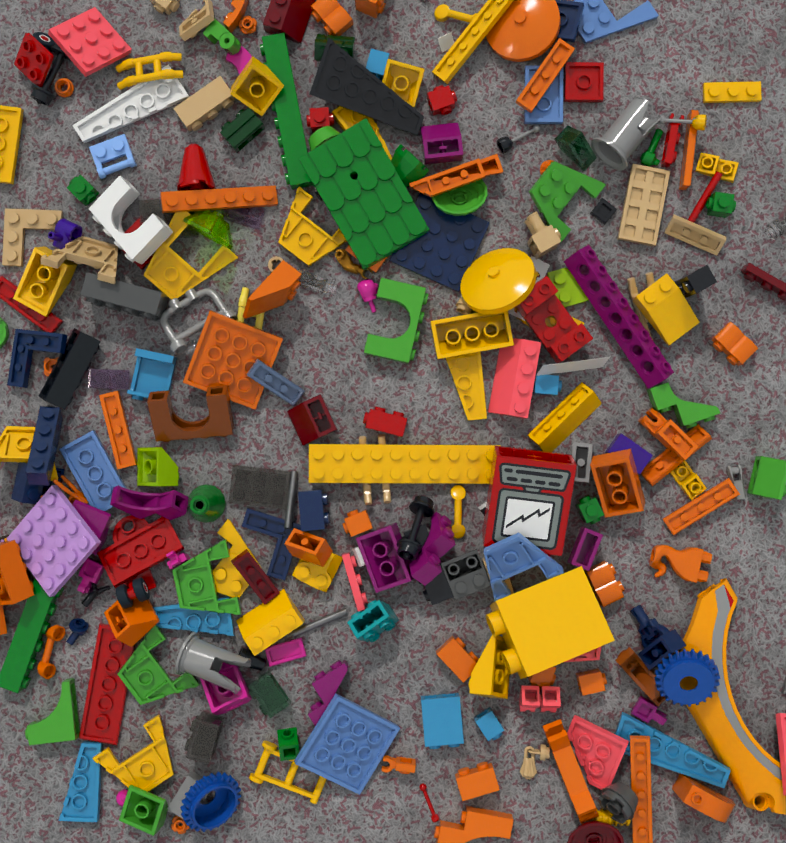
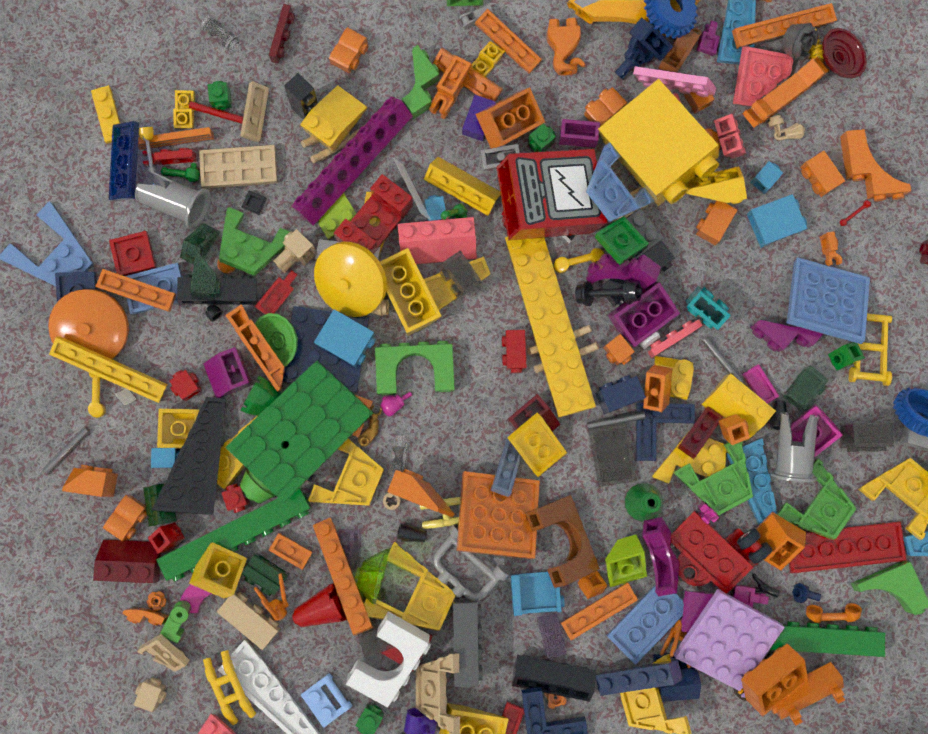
camera: 115 degrees left, 5 degrees down
(143, 431) = (592, 585): none -> orange slope
(208, 131) = (275, 607): none -> orange plant
(241, 274) = (411, 533): none -> black cone
(248, 610) = (734, 429): none -> orange brick
(257, 159) = (290, 551): none -> orange plate
(288, 415) = (537, 444): none -> yellow plate
(301, 47) = (166, 537): none -> red brick
(441, 261) = (345, 338): none -> dark azure panel
(461, 554) = (621, 240): none -> green plate
(471, 387) = (460, 275): none -> clear smoke brick
(505, 208) = (276, 294): none -> red plate
(523, 152) = (232, 292): none -> black brick
(535, 140) = (204, 279): none -> clear green slope
(539, 407) = (458, 211): none -> green piece
(609, 658) = (683, 82): none -> bright pink plate
(677, 94) = (123, 161): none -> clear blue plate

